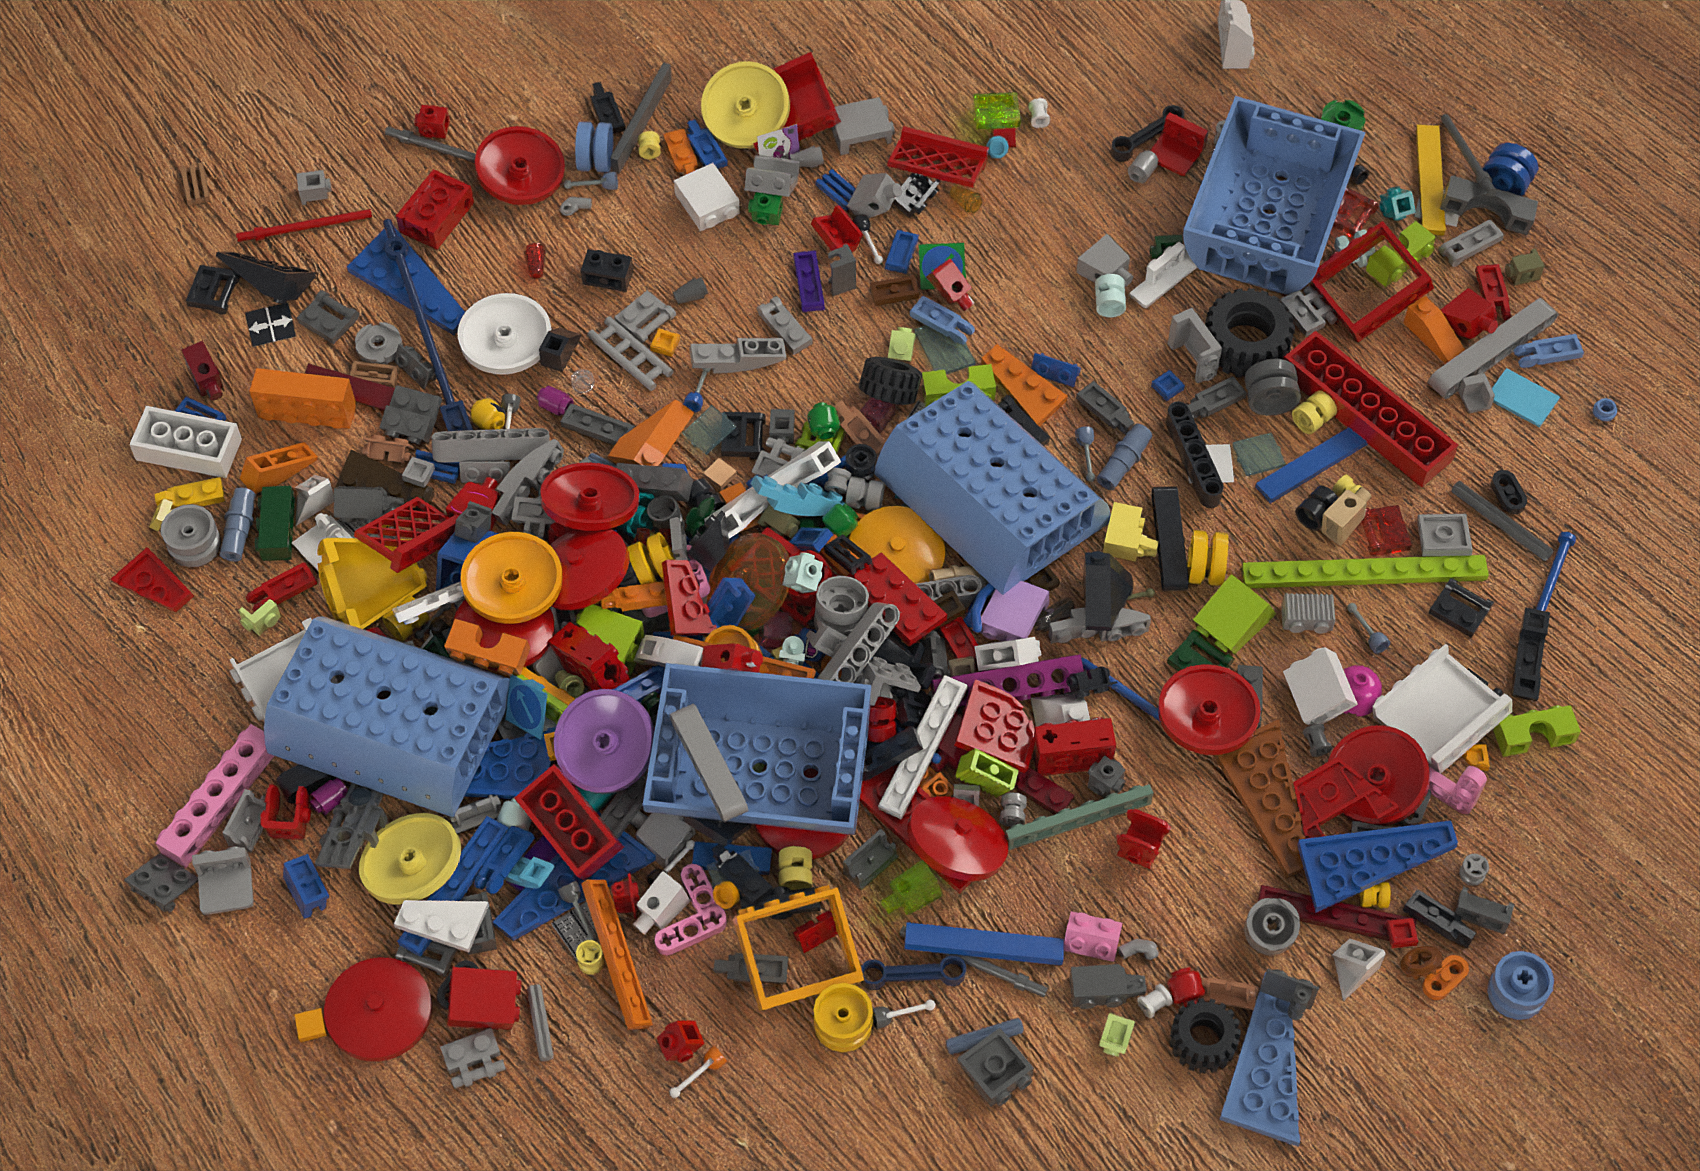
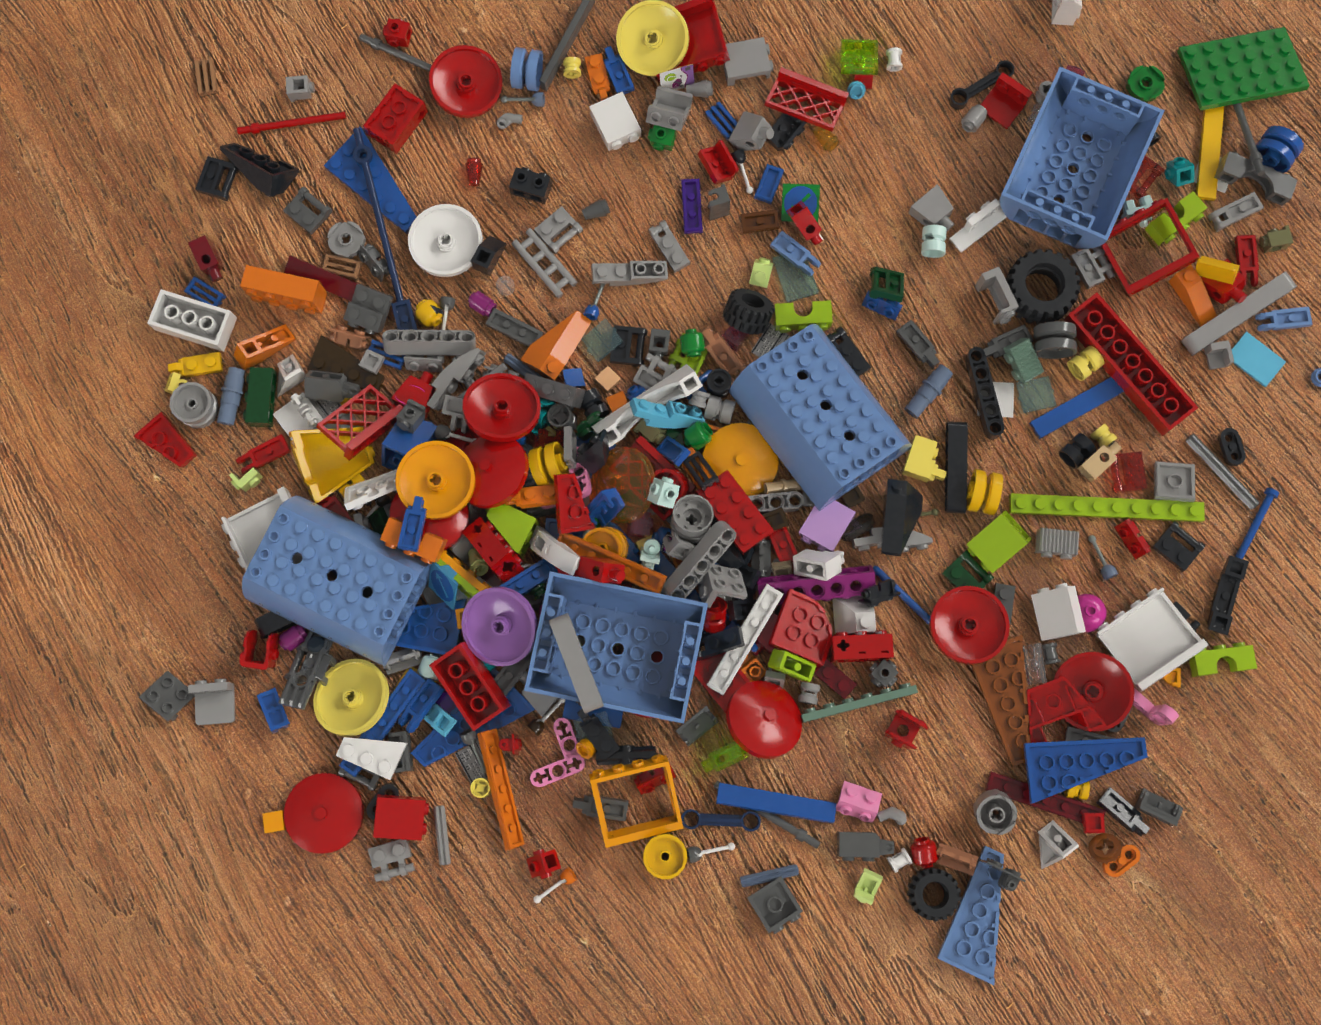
camera: 10 degrees right, 20 degrees up
(218, 807) = (209, 641): bright pink brick -> none
(244, 824) = (229, 653): light grey hinge -> none
(270, 324) = (262, 213): black sticker -> none
(486, 624) = (412, 526): none -> blue hinge
(606, 108) = (539, 30): black hinge -> none
(661, 903) = (541, 747): white torso -> none
(665, 342) = (572, 255): light orange tile -> none
(795, 867) = (637, 737): light yellow wheel -> none
(976, 607) = (798, 517): blue piece -> none
(1029, 390) = (857, 319): orange wing -> none
(1065, 344) = (893, 284): none -> dark green plate
(1084, 437) = (899, 370): hinge -> none
(1161, 243) = (982, 196): dark green bracket -> none
(1168, 385) = (970, 326): blue tile -> none
(1236, 413) = (1023, 360): none -> sand green brick
(1298, 751) = (1034, 664): none -> clear plate
(1400, 602) = (1128, 532): none -> red hinge
(1455, 96) = (1243, 68): none -> green plate
(1456, 297) = (1217, 269): none -> yellow panel
(1476, 863) = (1160, 772): light grey wheel -> none
(1520, 985) = (1189, 878): medium blue wheel -> none

